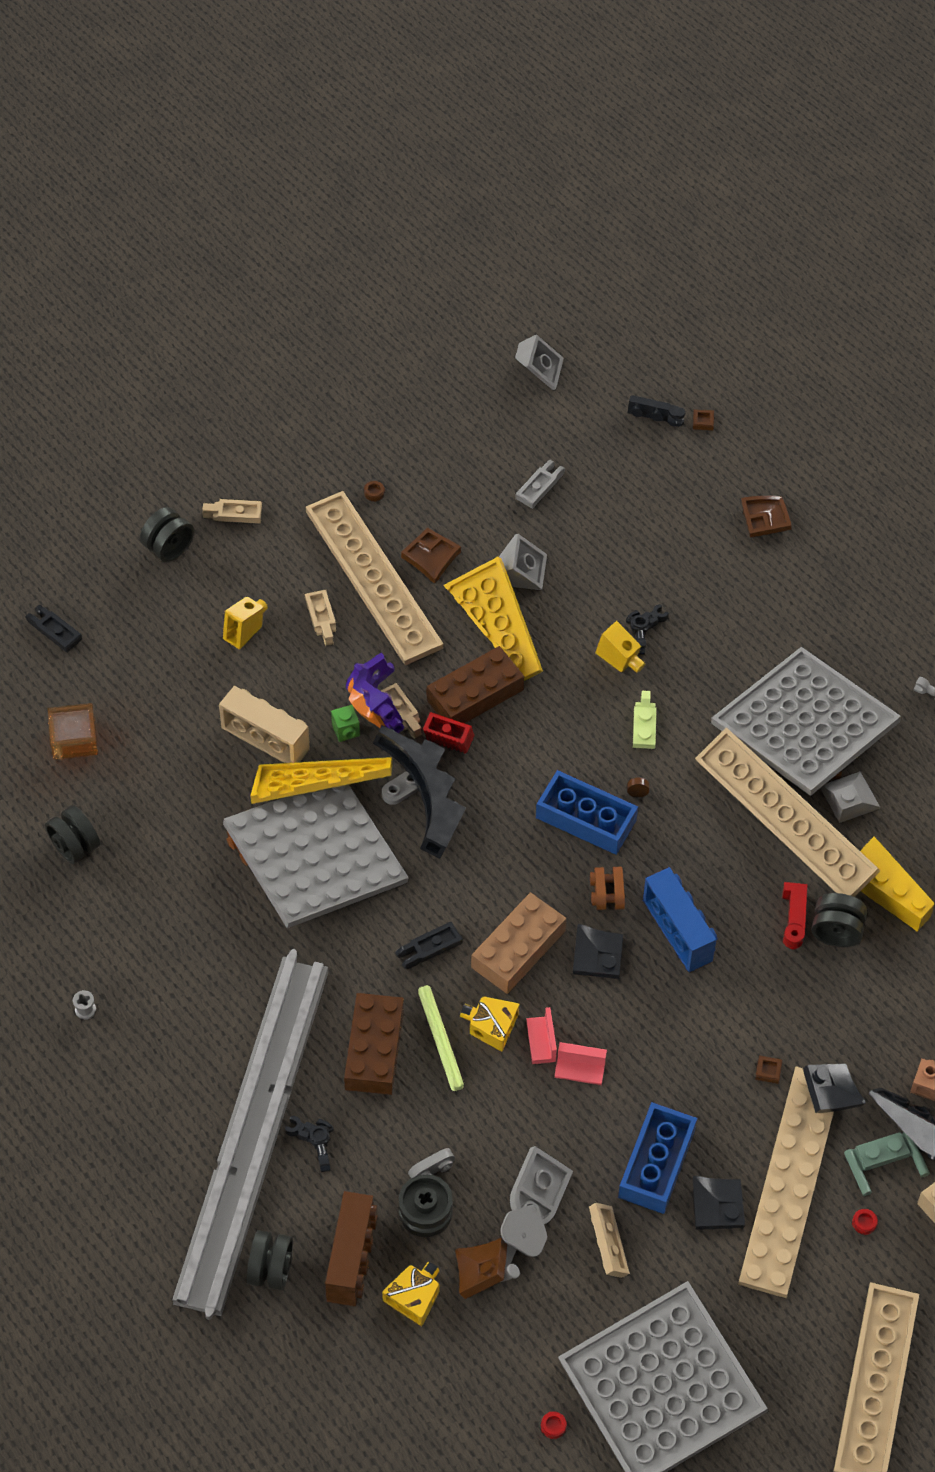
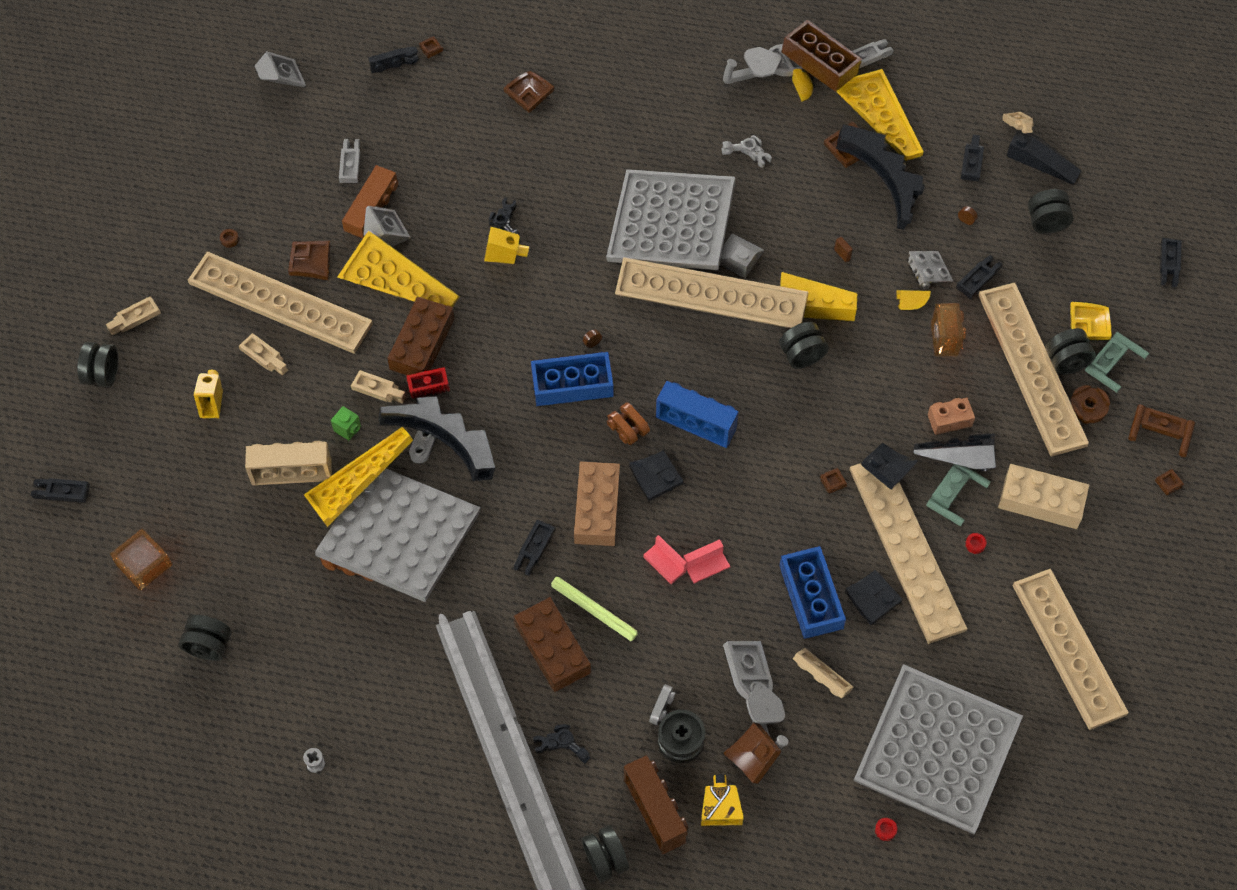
camera: 35 degrees left, 5 degrees up
(370, 701) = (353, 394): dark purple hips -> none
(491, 1020) = (621, 572): yellow torso -> none
(536, 528) = (374, 193): none -> dark orange brick
(644, 723) = (559, 289): yellowish green hinge -> none
(797, 897) = (768, 359): red leg -> none

